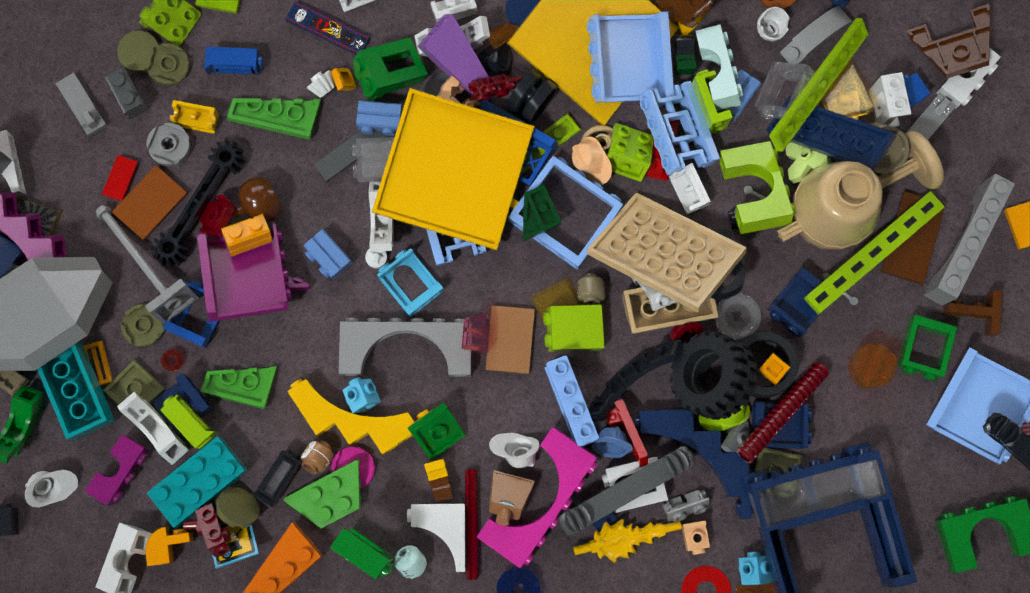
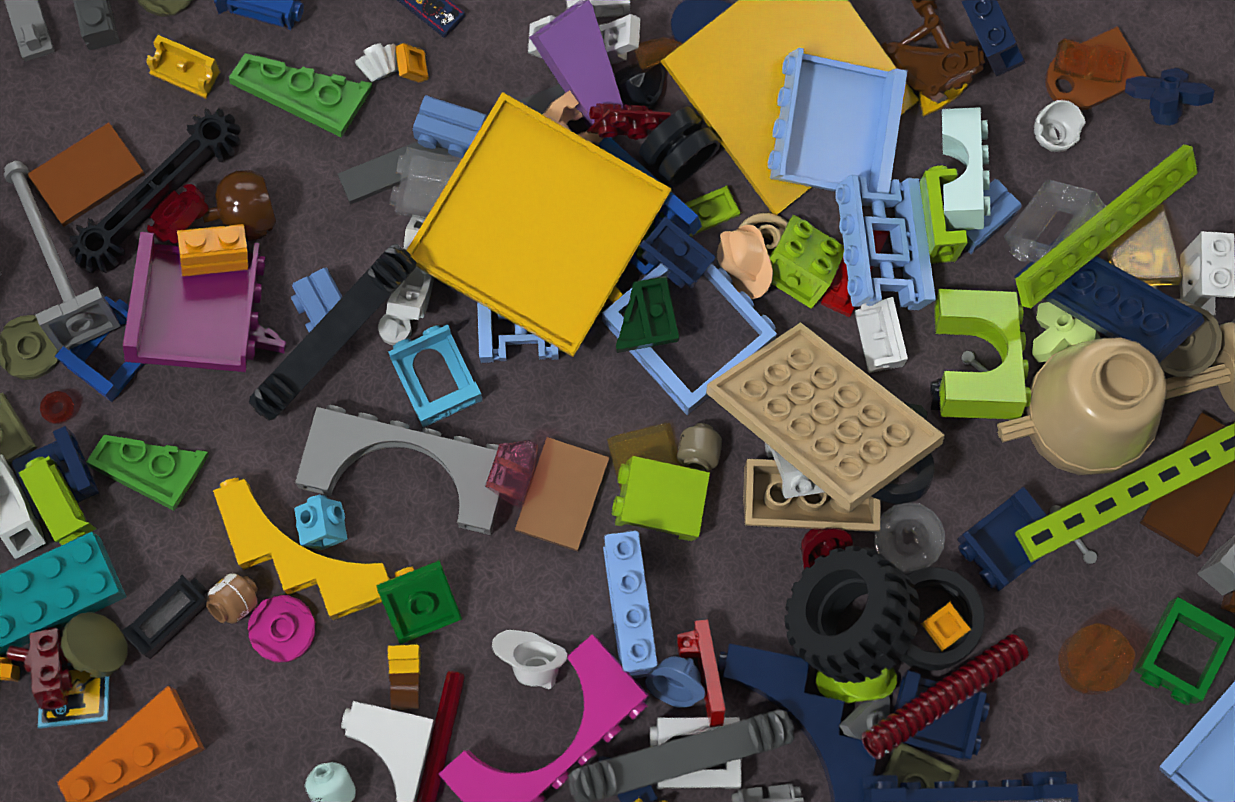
camera: 10 degrees right, 5 degrees down
(120, 178) = (53, 129): red tile -> none
(163, 134) = (141, 114): light grey plate -> none
(329, 496) = (236, 662): bright green wing -> none
(338, 271) = (332, 332): none -> black arm
(364, 553) = (262, 754): green arch -> none
(372, 72) = (456, 66): green brick -> none
(508, 496) = (503, 725): medium nougat torso -> none
(547, 167) = (677, 253): none -> dark blue bracket
(630, 373) = (736, 581): black tile -> none
(684, 55) = (918, 141): leg -> none
(815, 34) = (1119, 152): light grey arch -> none

